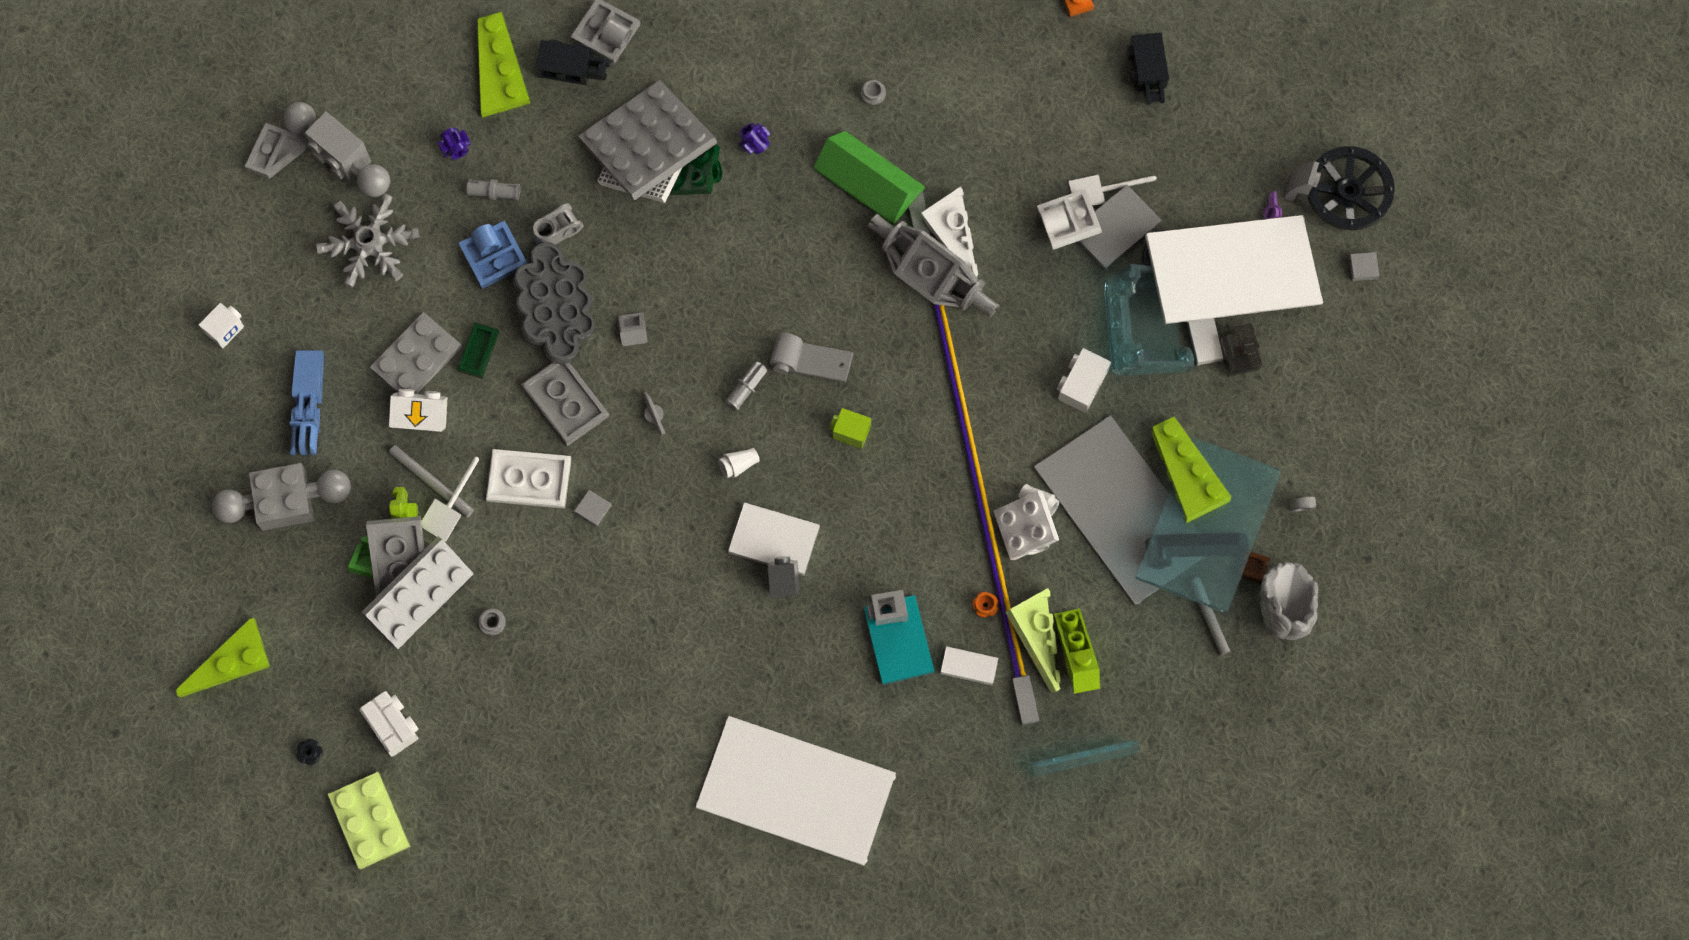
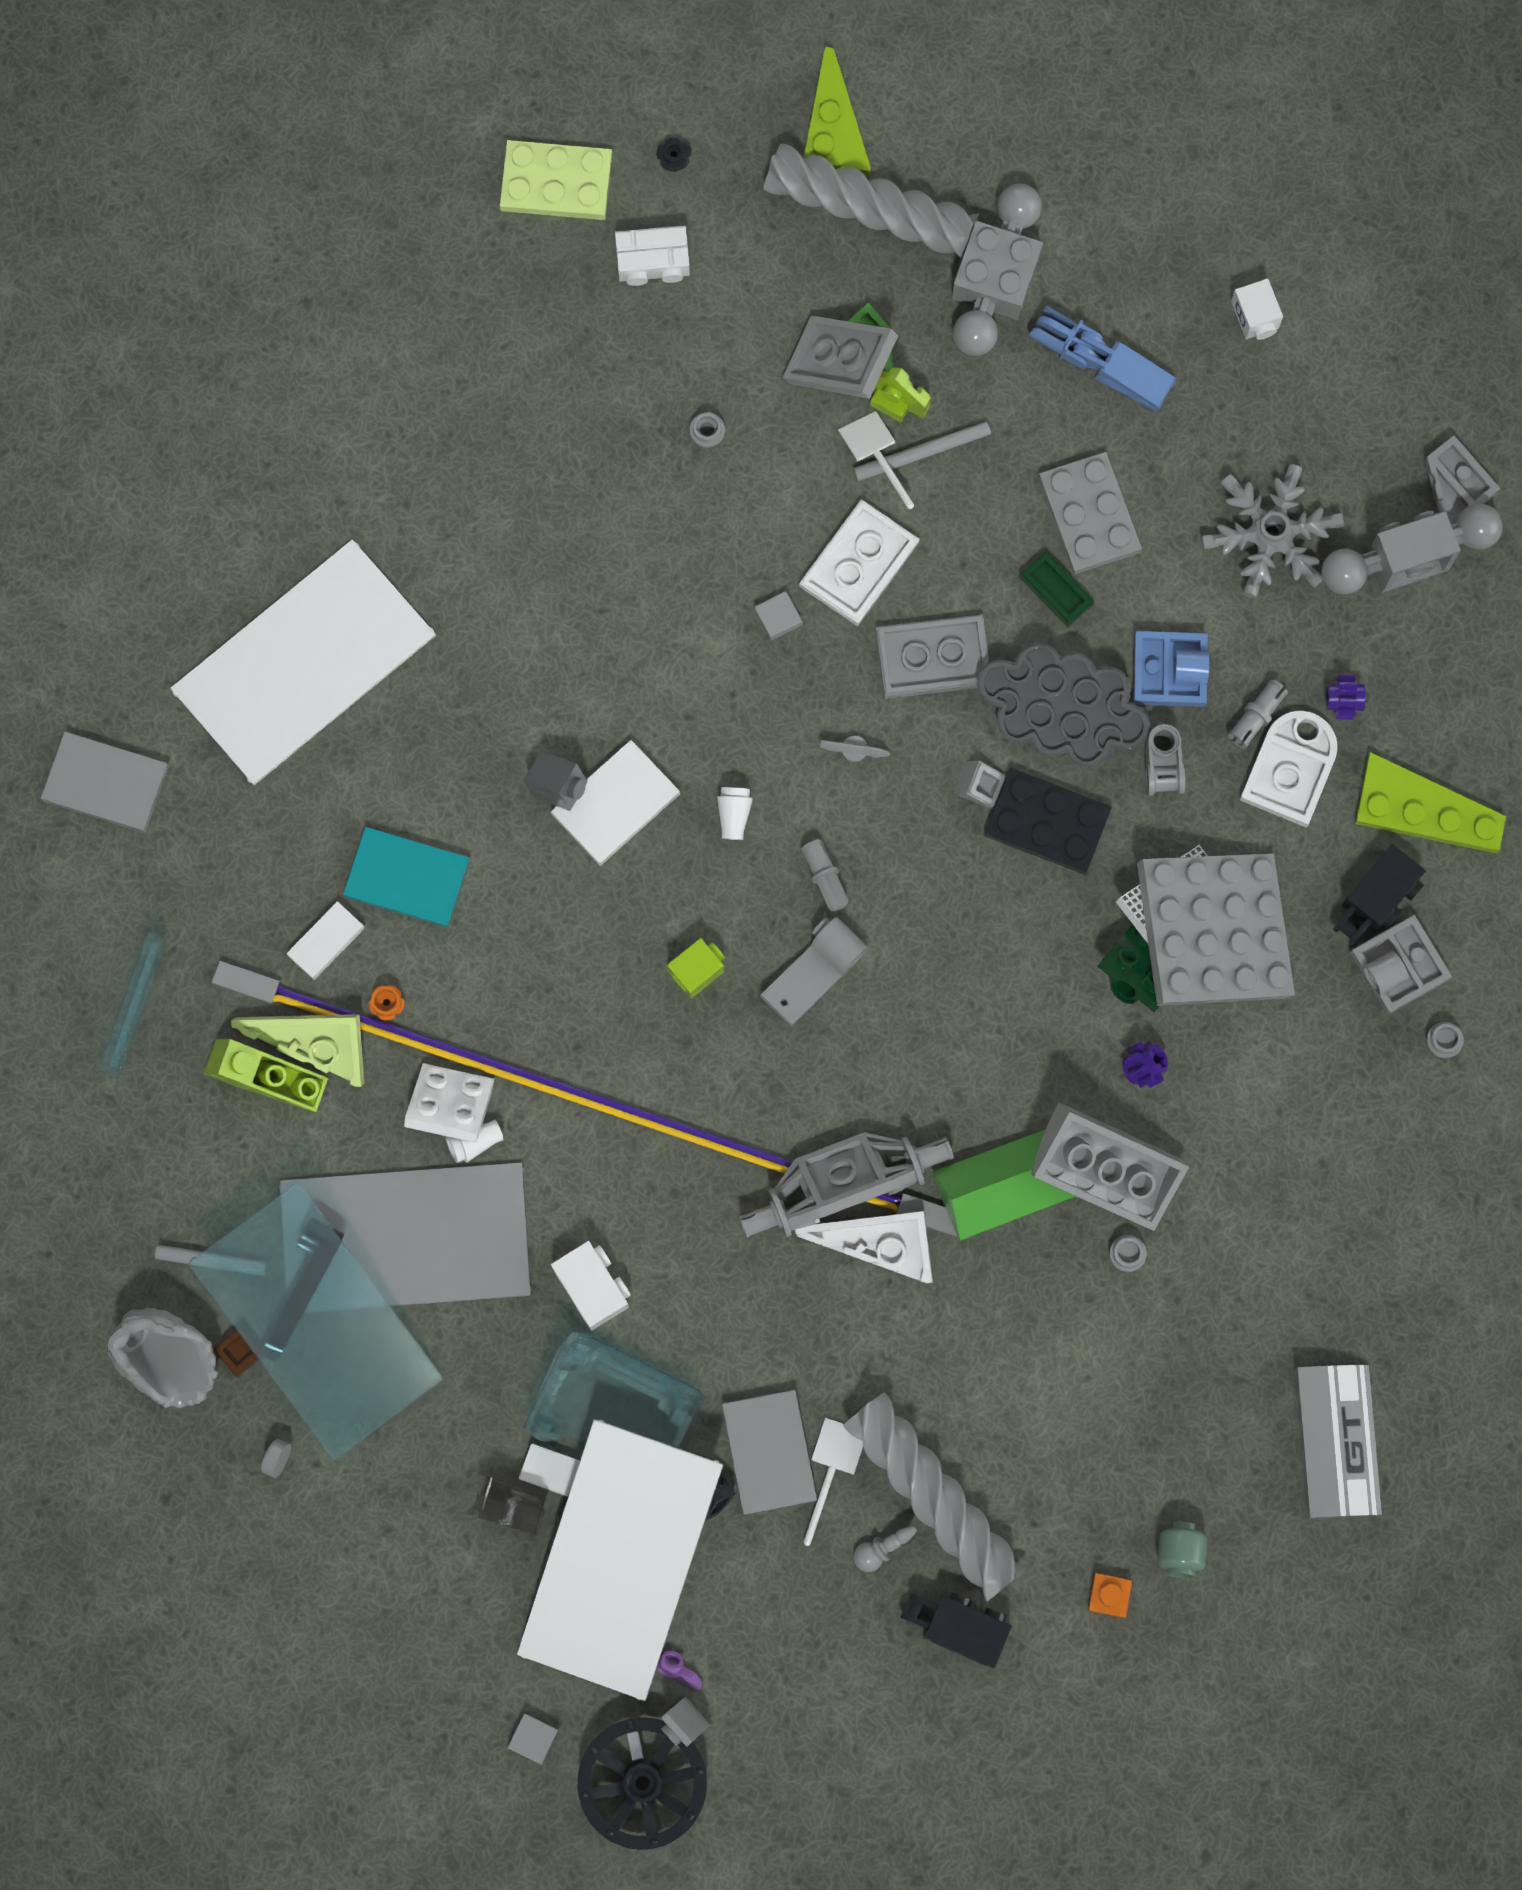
camera: 120 degrees right, 5 degrees up
(274, 602) = (874, 203): none -> light grey piece
(417, 592) = (786, 359): plate -> none
(418, 411) = (1013, 474): white brick -> none
(517, 153) = (1291, 769): none -> white tile
(633, 276) = (1048, 821): none -> black plate
(831, 121) = (1107, 1167): none -> light grey slope
(894, 600) = (439, 864): light grey brick -> none
(951, 869) = (104, 782): none -> light grey tile
(1069, 219) = (810, 1392): white plate -> none
(1082, 117) = (934, 1496): none -> light grey piece
(1139, 140) = (870, 1555): none -> light grey bar
(1193, 479) = (394, 1338): lime wing -> none

